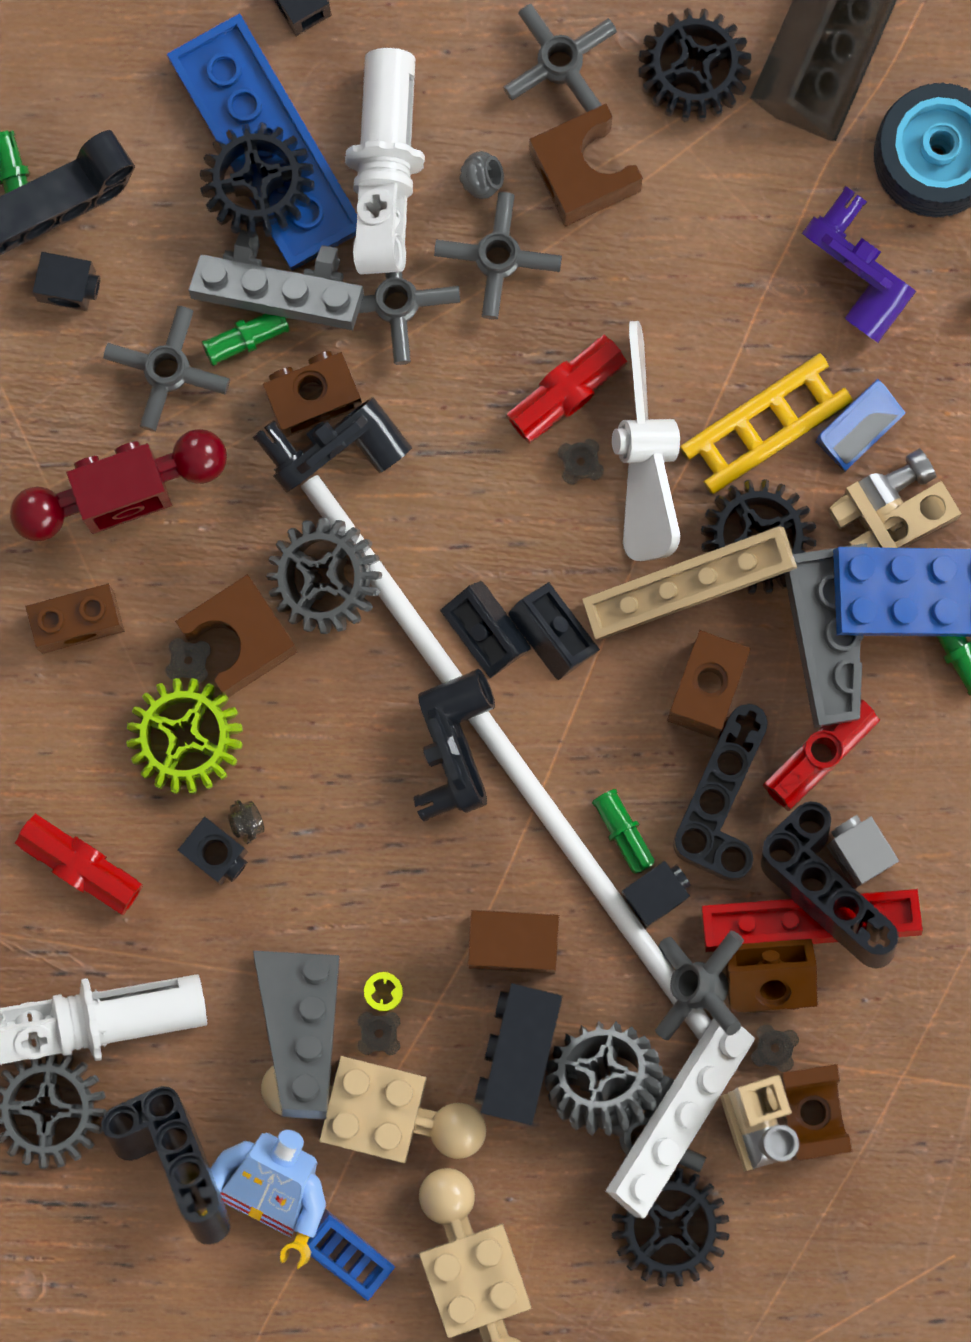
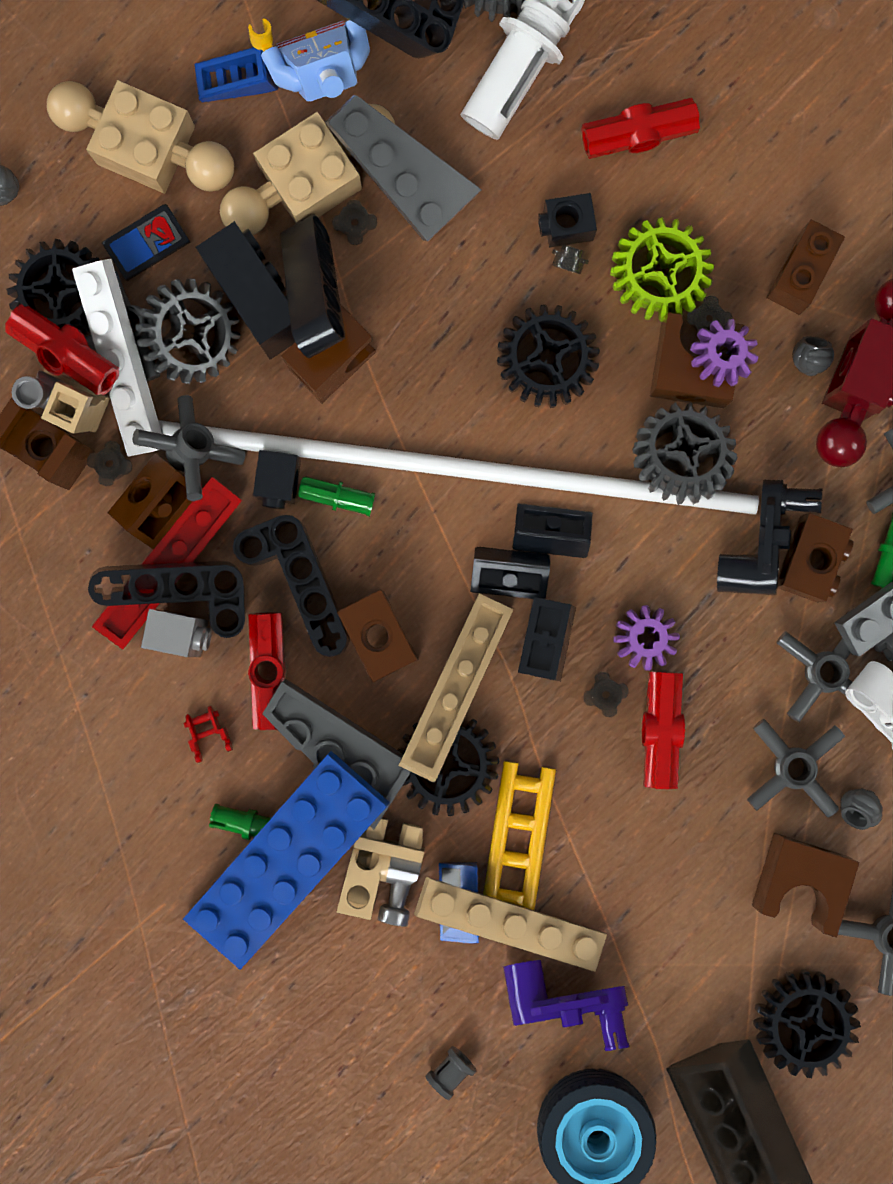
camera: 135 degrees right, 5 degrees up
(142, 547) = (812, 355): none -> dark grey piece
(224, 599) = (739, 348): none -> medium lavender gear
(330, 796) = (562, 349): none -> black gear
(370, 990) = (368, 255): neon yellow bush -> none
(443, 711) = (521, 446): black piece -> none
(473, 1000) = (311, 287): none -> black beam
(504, 456) = (654, 648): none -> medium lavender gear
(560, 1193) = (146, 242): none -> slope
(581, 548) = (547, 639): none -> black hinge
(645, 444) = (576, 744): white piece -> none
(719, 1161) = (62, 350): none -> red piece
(838, 367) = (510, 924): none -> tan plate
(922, 777) = (192, 722): none -> red piece

